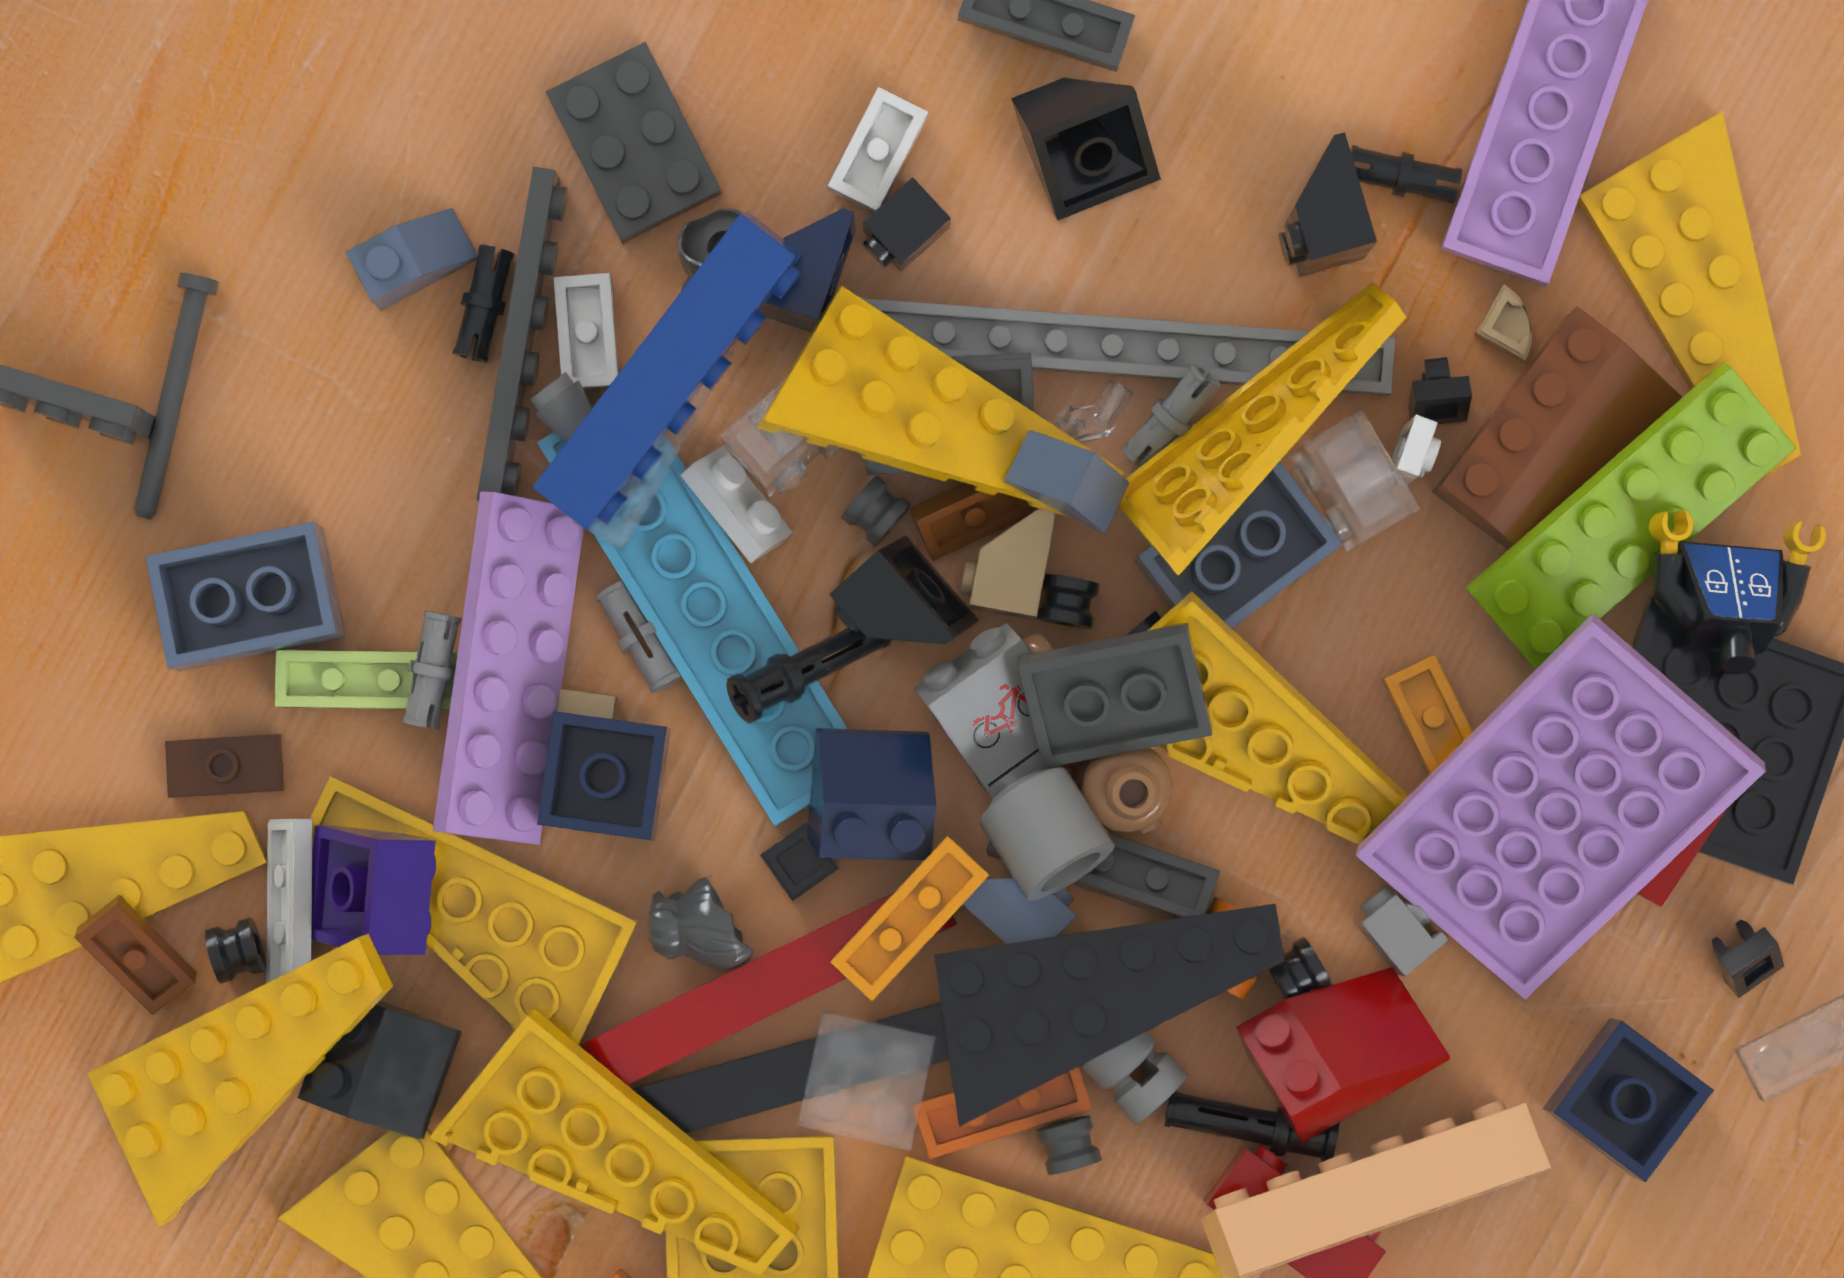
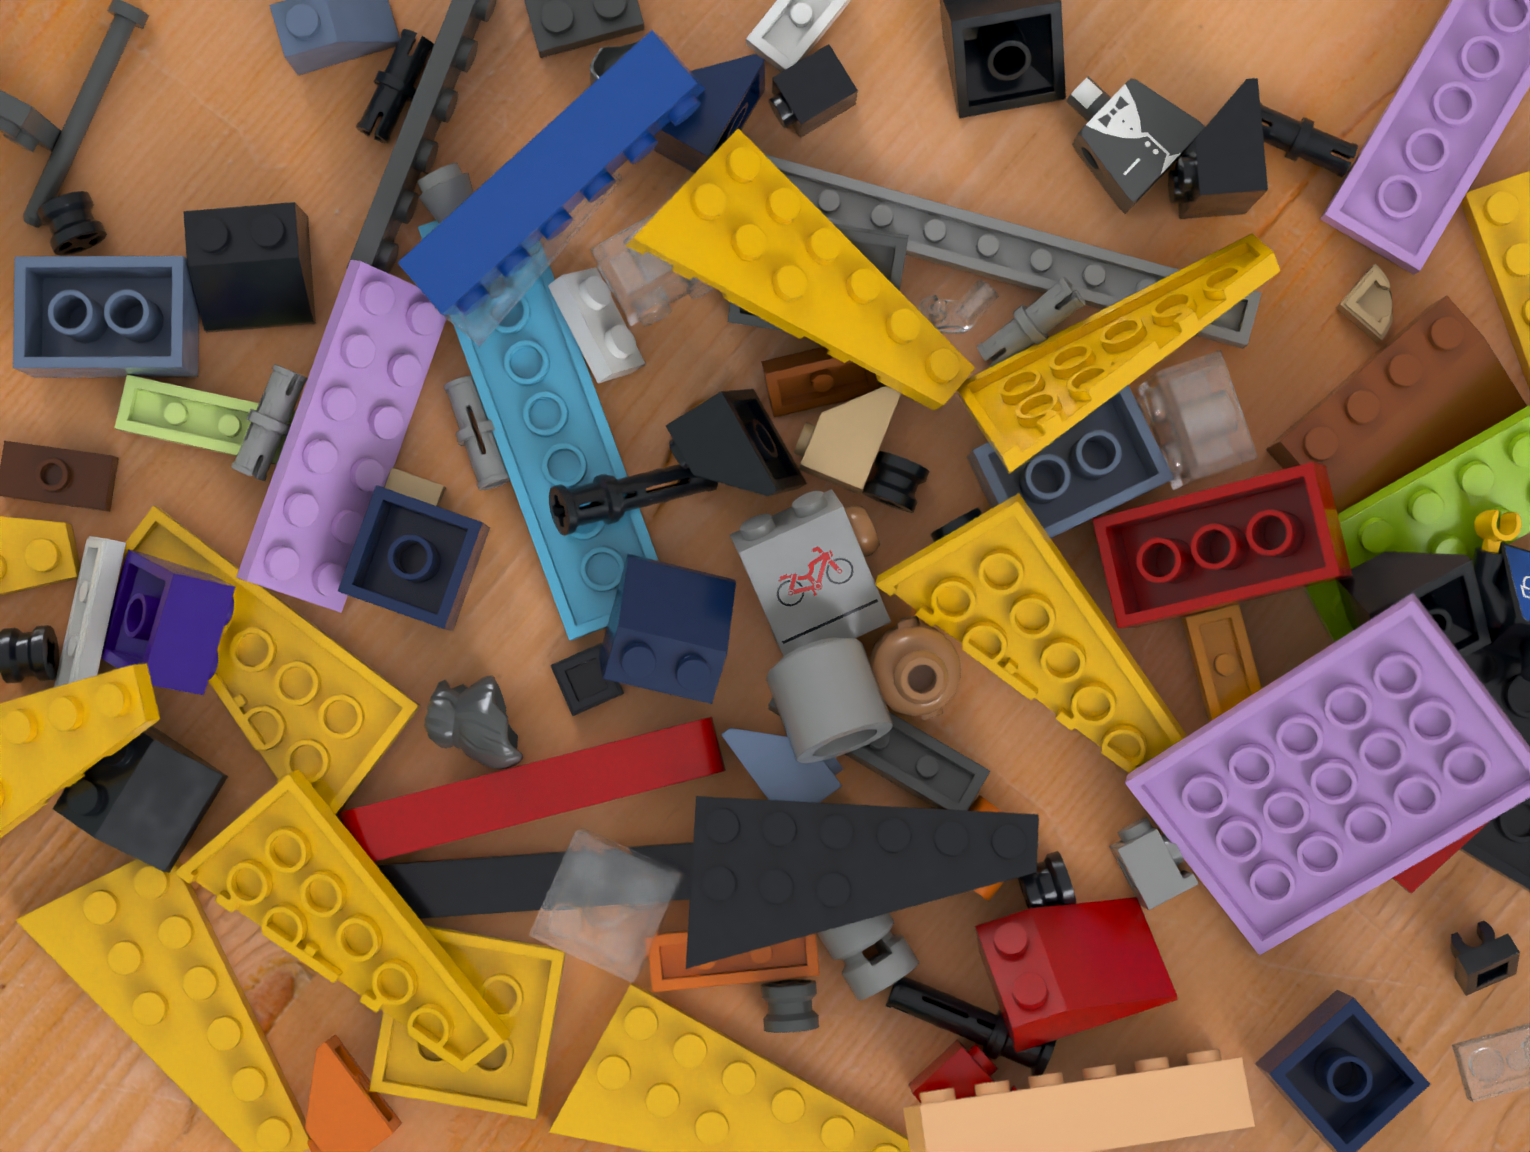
camera: 15 degrees right, 0 degrees up
(187, 508) = (71, 223): none -> black wheel
(377, 517) = (250, 266): none -> black slope
(587, 329) = (487, 125): white plate -> none
(875, 511) = (728, 358): dark grey wheel -> none
(910, 918) = (679, 756): light orange plate -> none
(1067, 479) = (920, 361): sand blue slope -> none
(1115, 695) = (923, 579): dark grey plate -> none
(1232, 207) = (1130, 137): none -> dark grey torso
(1403, 602) = (1222, 546): none -> red brick
(1416, 448) = (1264, 399): white plate -> none
(1440, 396) = (1292, 357): black tile -> none
(1621, 599) = (1439, 581): none -> black slope

